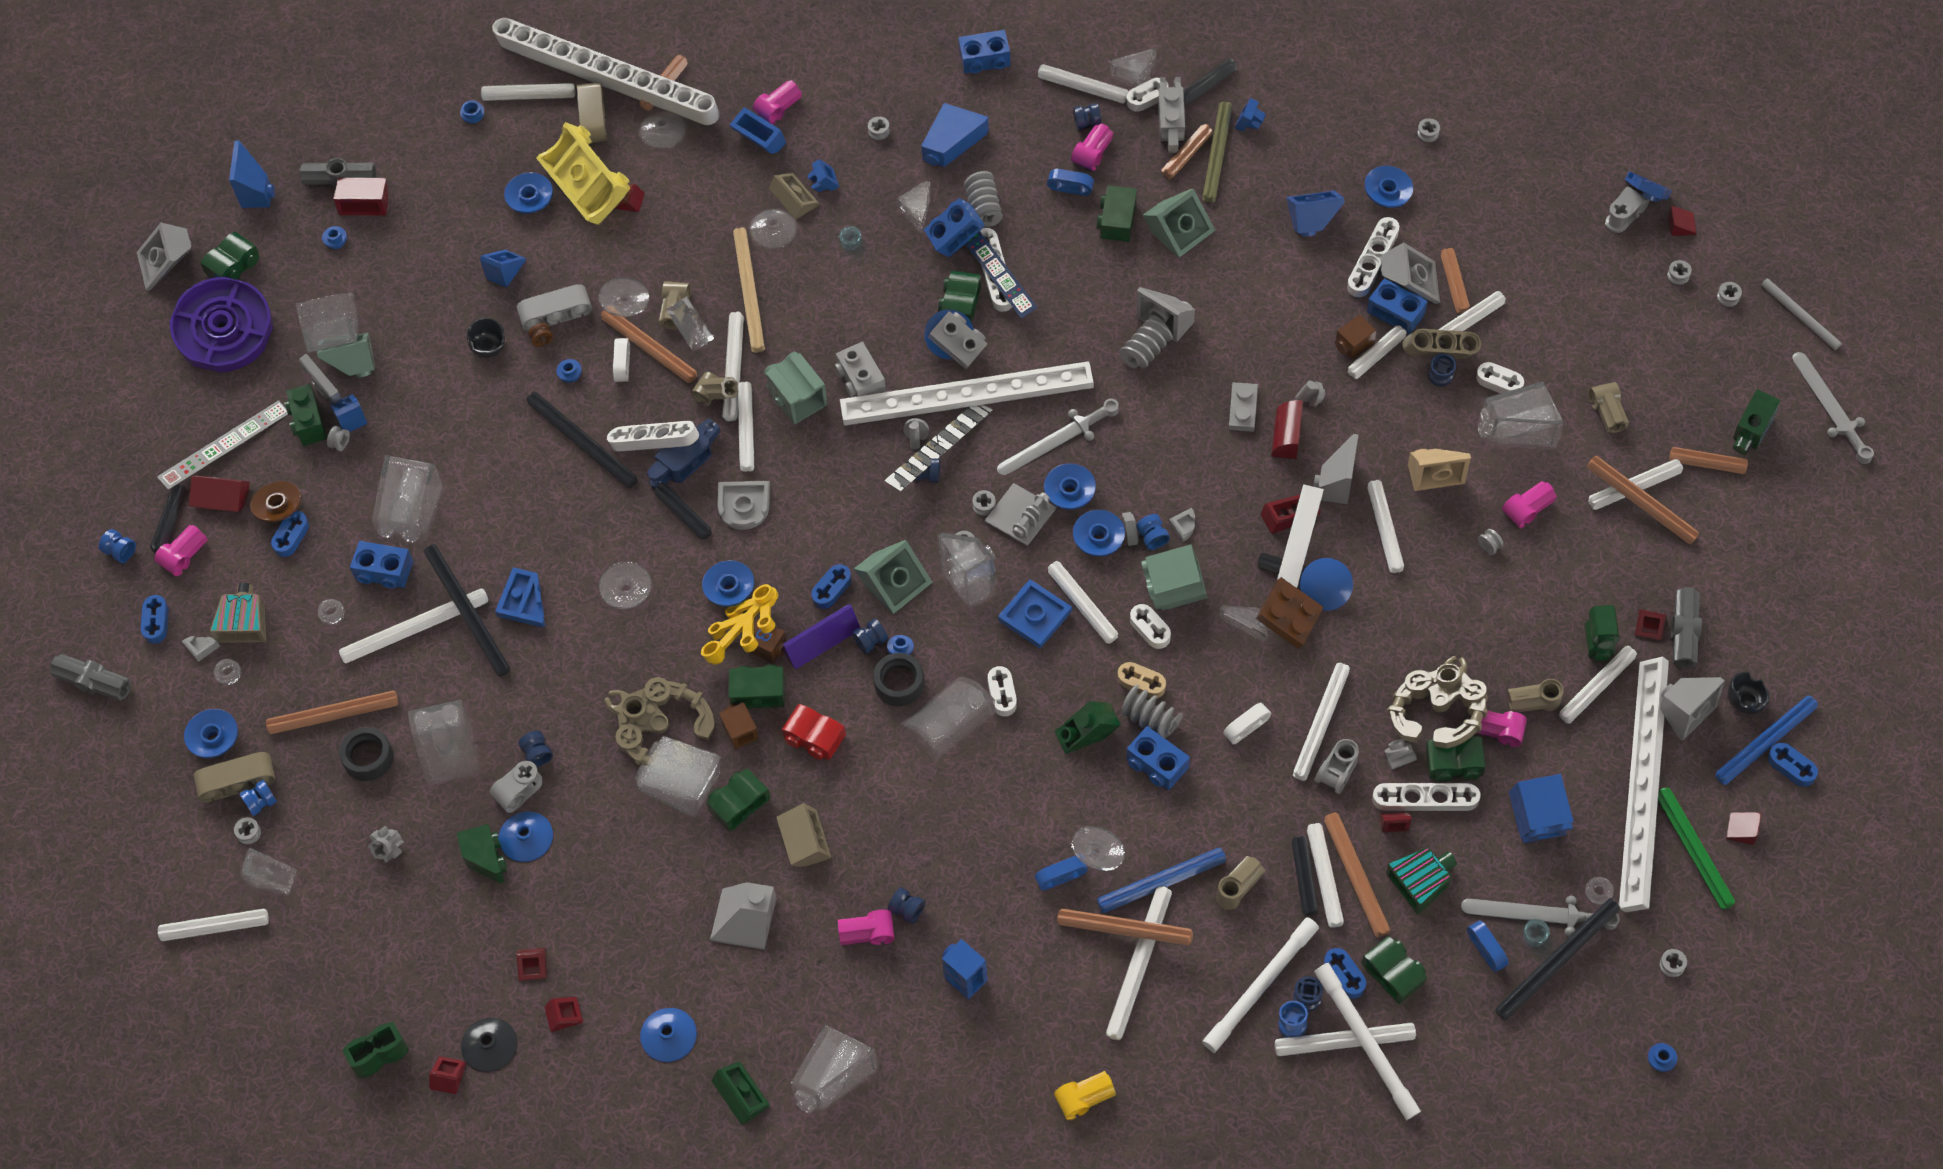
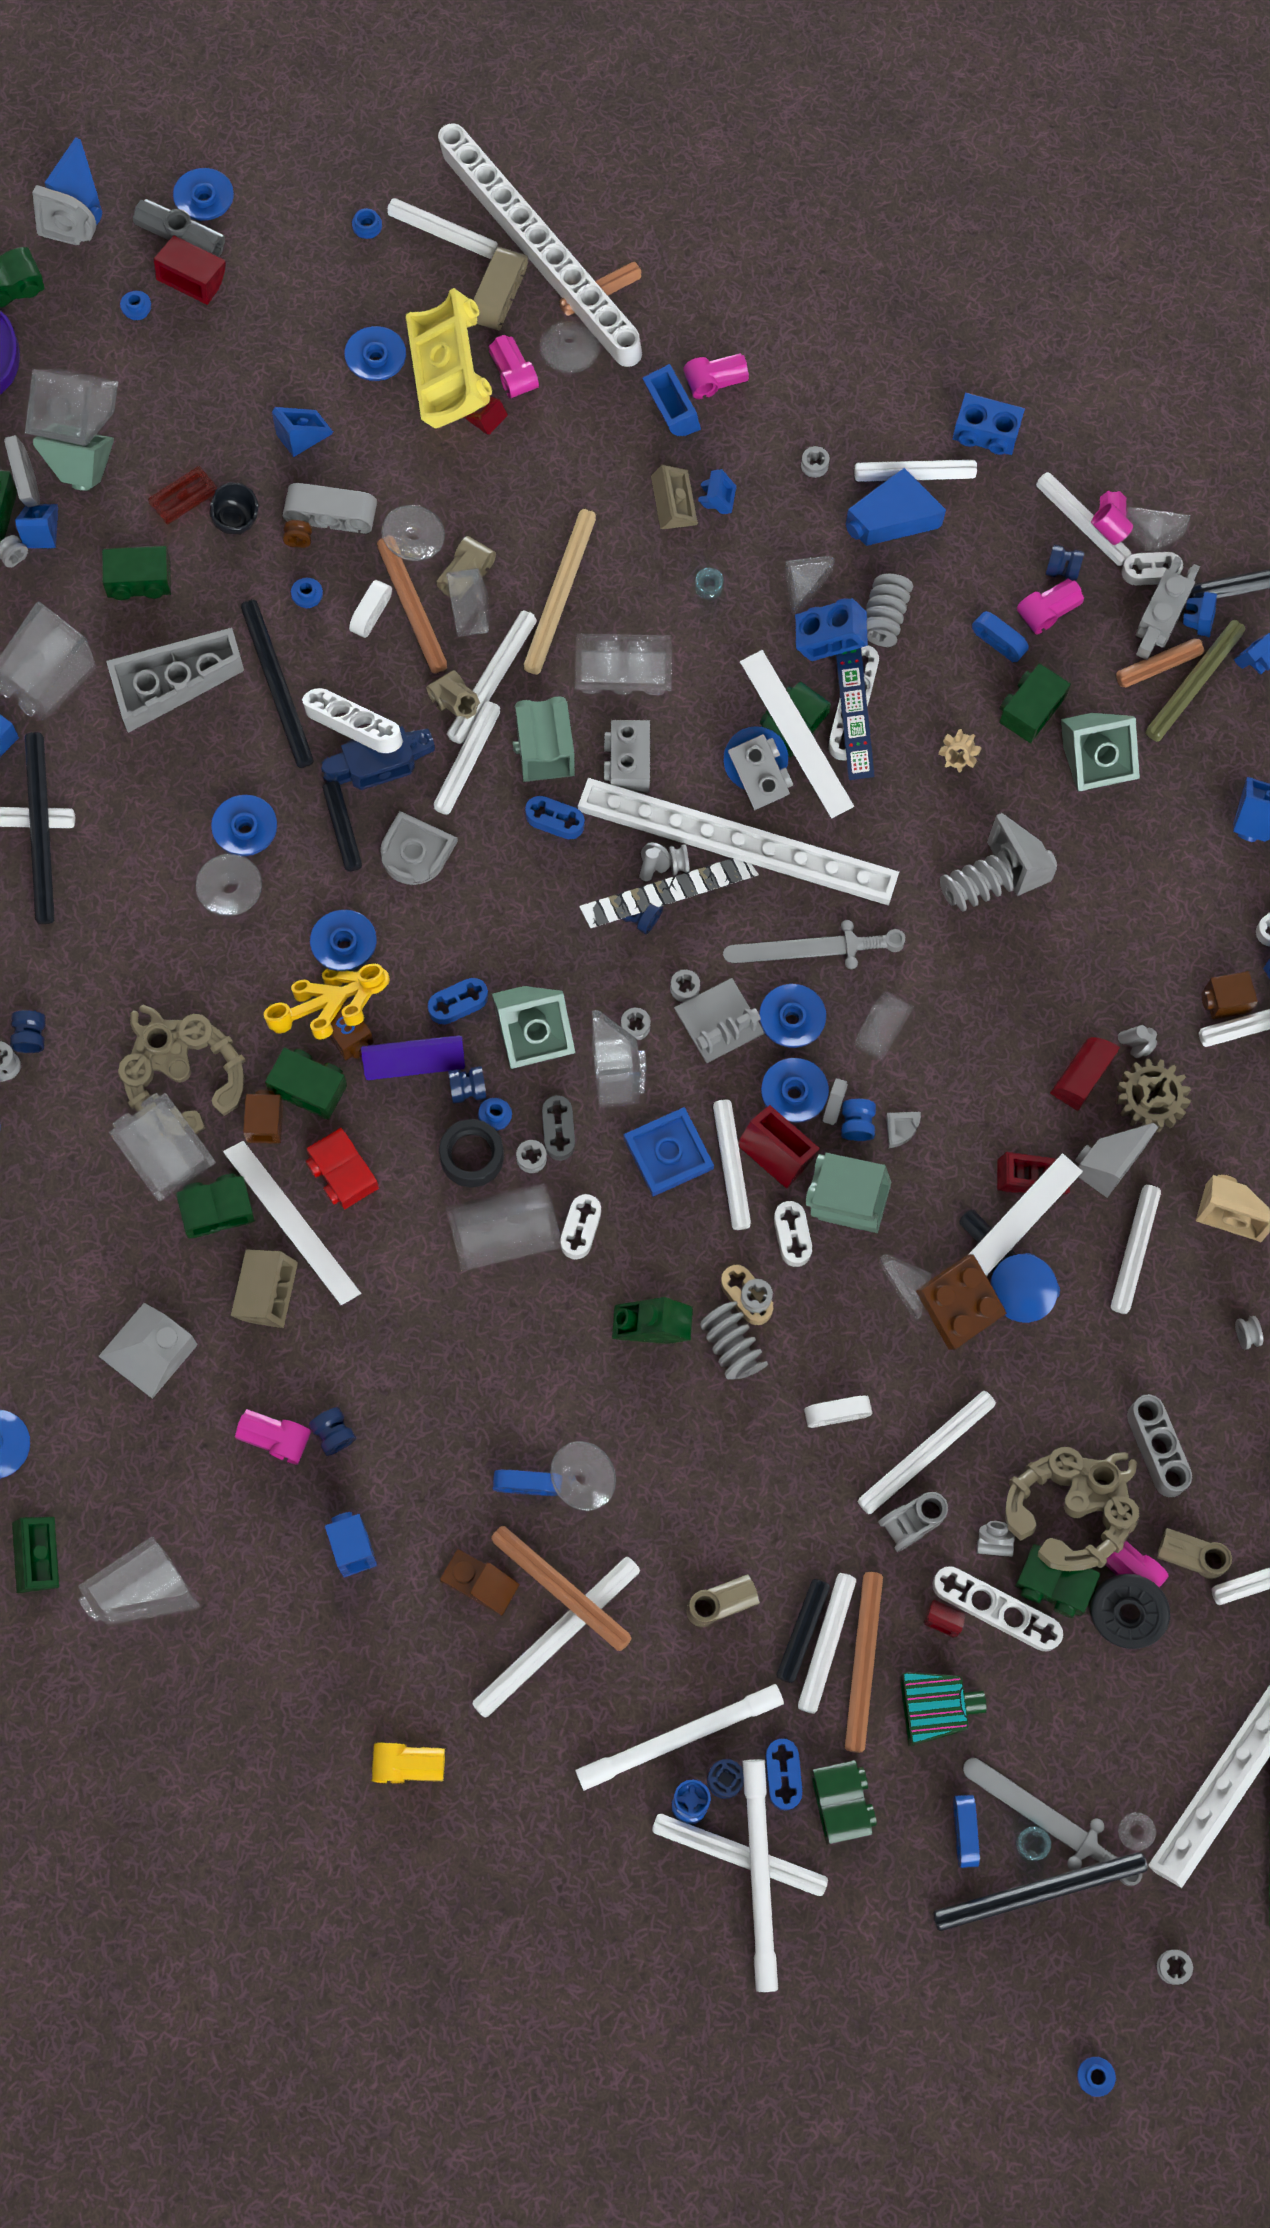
camera: 20 degrees right, 10 degrees up
(250, 200) = (62, 217): none -> light grey tile
(343, 135) = (203, 184): none -> blue dish
(439, 411) = (136, 572): none -> dark green brick
(459, 334) = (185, 499): none -> clear red tile
(504, 466) = (171, 675): none -> light grey wedge
(522, 599) = (109, 843): blue wing -> none
(609, 532) = (241, 812): none -> blue dish
(636, 163) = (515, 373): none -> dark pink piece
(773, 236) = (629, 540): clear dish -> none
(798, 786) = (292, 1223): none -> white sticker
(821, 315) = (623, 663): none -> clear slope
(830, 436) = (557, 811): none -> blue beam
(934, 422) = (679, 859): none -> light grey bush
(941, 669) = (536, 1147): none -> light grey bush
(954, 632) = (565, 1127): none -> dark grey beam
(958, 100) = (918, 469): none -> white axle
(969, 304) = (797, 734): none -> white sticker
(1072, 953) = (480, 1582): none -> reddish brown slope
(1089, 271) = (963, 742): none -> tan gear
(1103, 72) = (1111, 517): none -> dark pink piece
(1108, 574) = (777, 1146): none -> dark red brick
(1134, 465) = (883, 1025): none -> clear slope
(1146, 668) = (758, 1285): none -> light grey bush
(1161, 754) = (718, 1399): blue brick -> none
(1164, 878) = (636, 1550): blue axle -> none
(1199, 107) = (1205, 613): none -> blue tile
(1243, 406) = (1050, 1016): light grey piece -> none
(1328, 419) = (1140, 1085): none -> dark tan gear
(1469, 629) = (1162, 1429): none -> light grey beam
(1514, 735) = (1134, 1590): none -> black wheel
(1541, 808) = (1121, 1700): blue piece -> none

